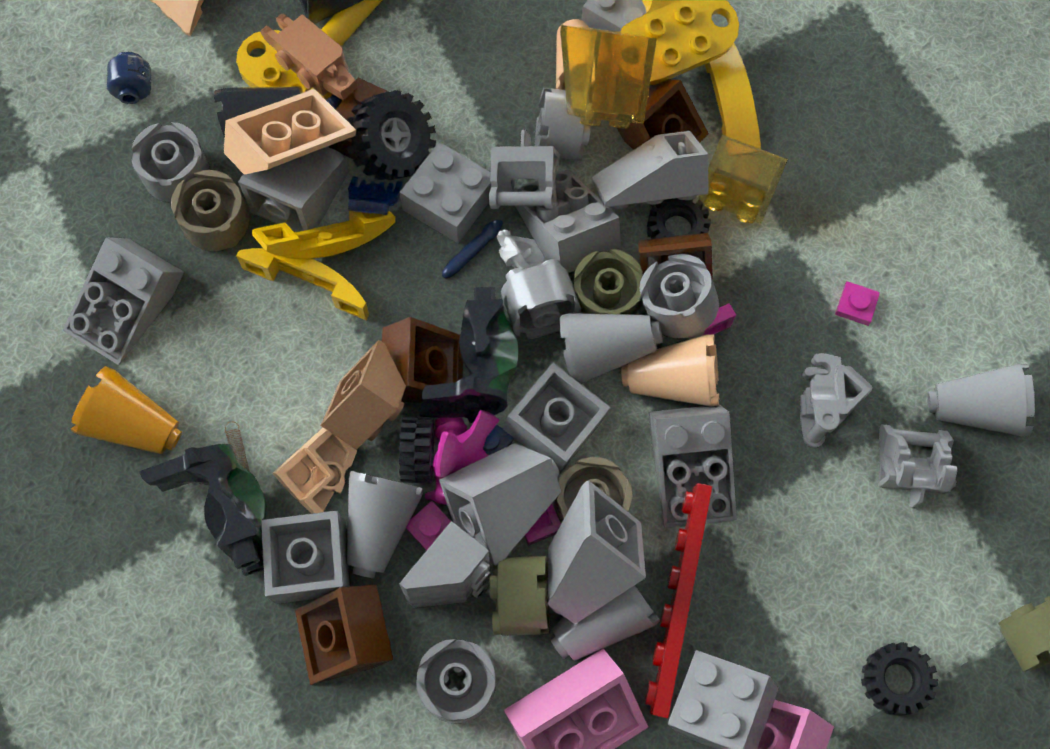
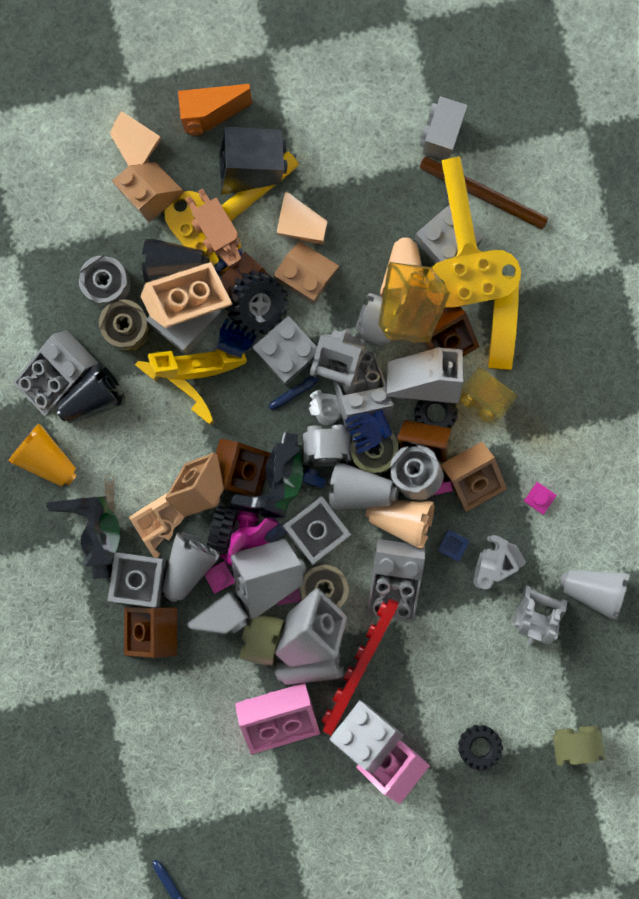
camera: 20 degrees right, 15 degrees up
(128, 77) = (88, 205): dark blue head -> none
(178, 316) = (91, 396): none -> black cone
(204, 40) = (147, 189): none -> medium nougat slope
(425, 38) = (300, 221): none -> light nougat slope
(449, 95) = (305, 272): none -> medium nougat slope
(462, 659) = (206, 692): light grey brick -> none
(532, 351) = (312, 478): none -> dark blue plate
(597, 252) = (371, 428): none -> clear blue piece
(759, 395) = (453, 545): none -> dark blue plate
(760, 292) = (474, 476): none -> medium nougat slope

